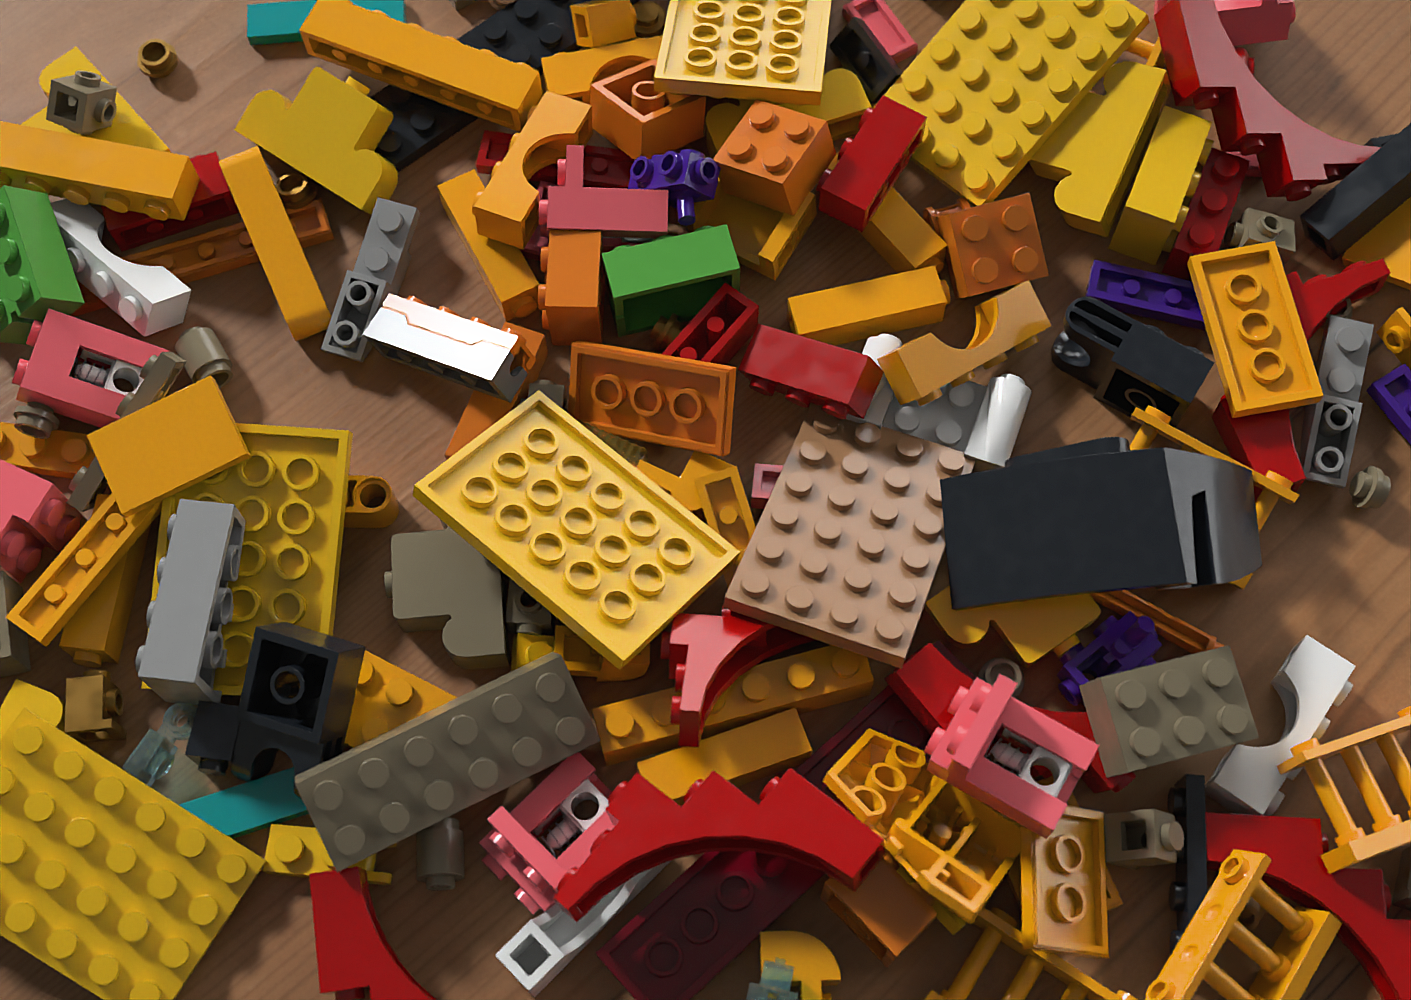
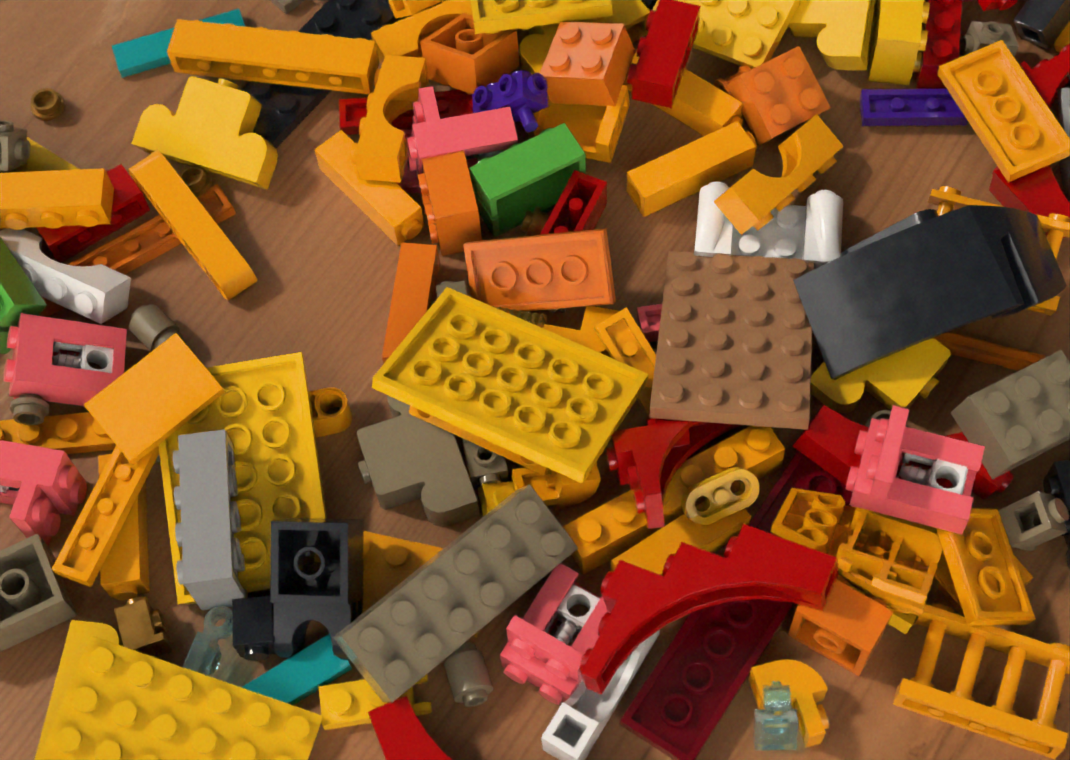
camera: 10 degrees left, 5 degrees down
(158, 377) = (129, 346): dark tan plate -> none
(375, 275) = (280, 238): light grey slope -> none
(451, 346) = (363, 271): piece -> none
(779, 723) = (718, 497): none -> yellow plate
(810, 372) = (663, 223): red brick -> none
(1117, 648) = (966, 378): dark purple brick -> none
(1128, 360) = (912, 158): black brick -> none

